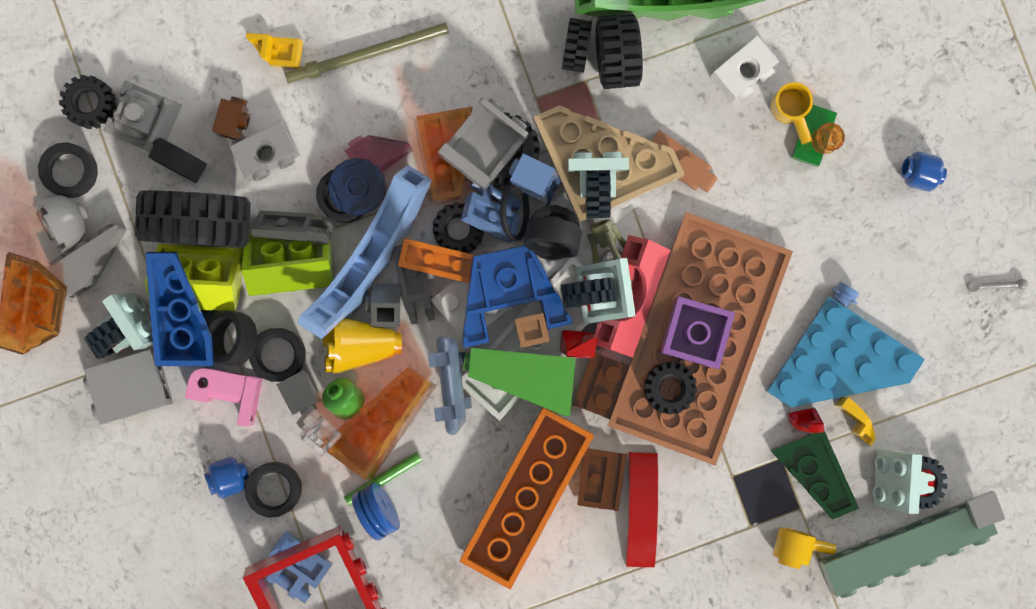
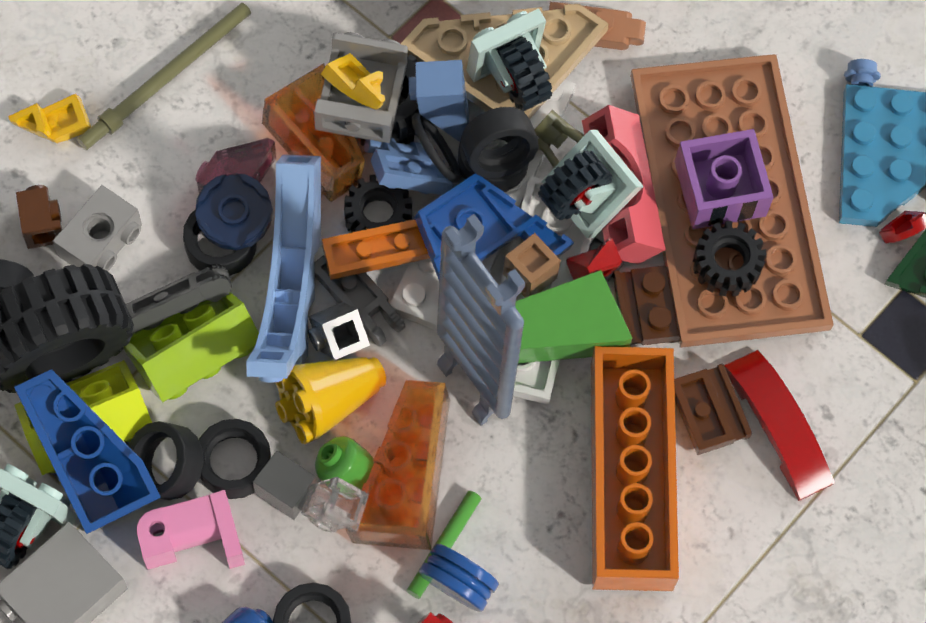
camera: 30 degrees left, 20 degrees down
(480, 140) = (355, 81): none -> yellow slope

